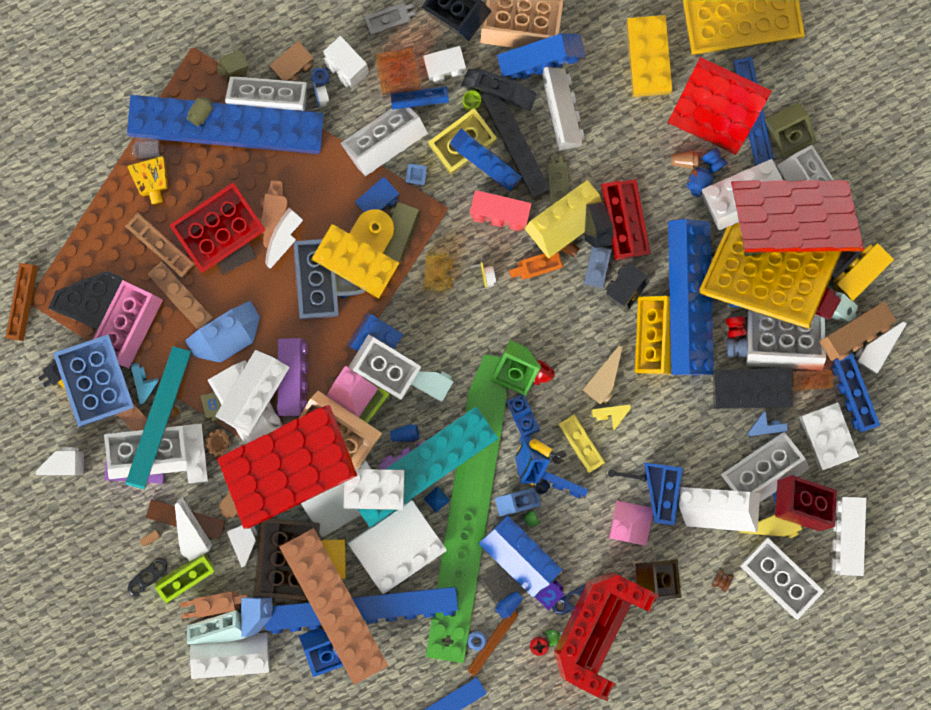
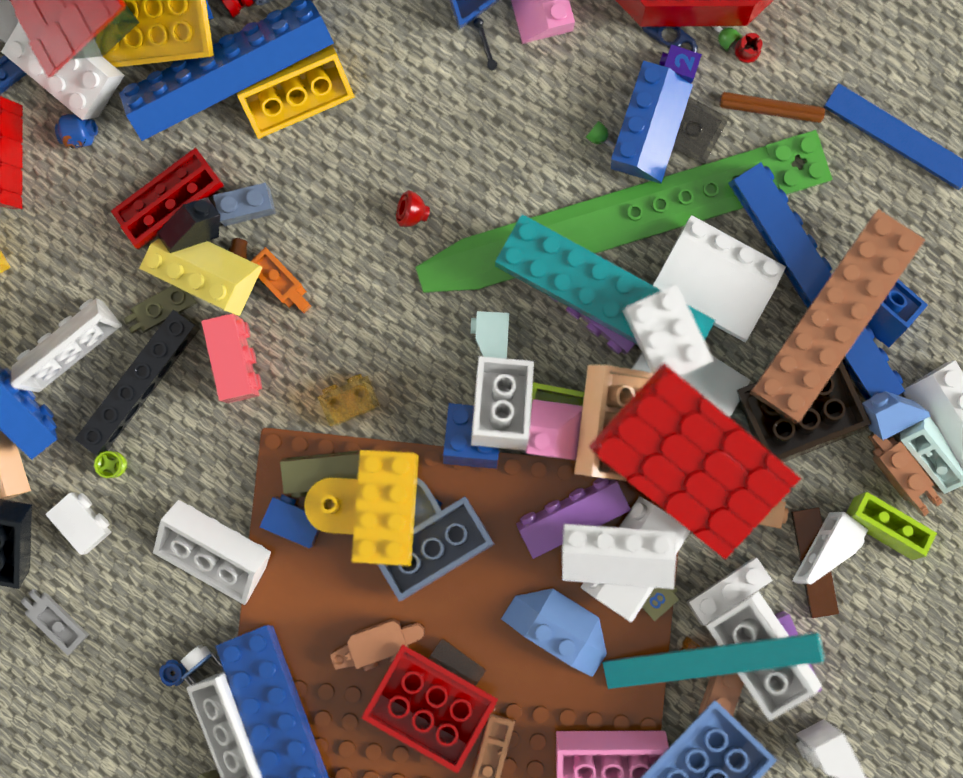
camera: 115 degrees left, 0 degrees up
(138, 578) = (922, 573): black piece -> none
(145, 387) = (678, 699): medium azure slope -> none
(150, 538) = (862, 594): medium nougat tile -> none
(180, 295) = (539, 711): medium nougat plate -> none
(217, 442) = (701, 570): medium nougat piece -> none
(243, 542) = (812, 474): white slope -> none
(281, 237) = (400, 619): white slope -> none
(292, 63) = (170, 717): medium nougat brick -> none
(337, 552) = (761, 352): yellow brick -> none
(346, 62) = (135, 650): white brick -> none
(397, 71) = (116, 577): clear orange brick -> none
(406, 433) = (570, 340): blue cone -> none
(416, 174) = (238, 488): medium blue plate -> none
(419, 97) = (138, 533): blue tile -> none
(436, 499) = (632, 261): blue slope -> none
(473, 125) = (167, 450): light yellow brick -> none
(473, 635) = (782, 119): medium blue plate -> none
(485, 159) = (173, 408): blue brick -> none
(487, 274) = (321, 335): white piece -> none
(499, 86) = (71, 437): black slope -> none
(508, 605) = (718, 107): blue cone -> none
(516, 368) = (420, 241): bright green slope -> none
(517, 502) = (586, 160): medium blue slope -> none
(523, 415) = (476, 206): blue slope -> none
(533, 460) = (524, 162): blue torso -> none
(559, 483) = (537, 119): blue hinge -> none
(581, 443) = (474, 119): light yellow tile -> none
(603, 381) = (382, 128): tan slope -> none
(617, 414) = (416, 91): light yellow slope -> none
(627, 286) = (250, 151): black brick -> none
(685, 159) = (56, 161): medium nougat cone -> none
(714, 160) = (40, 125): blue wheel -> none

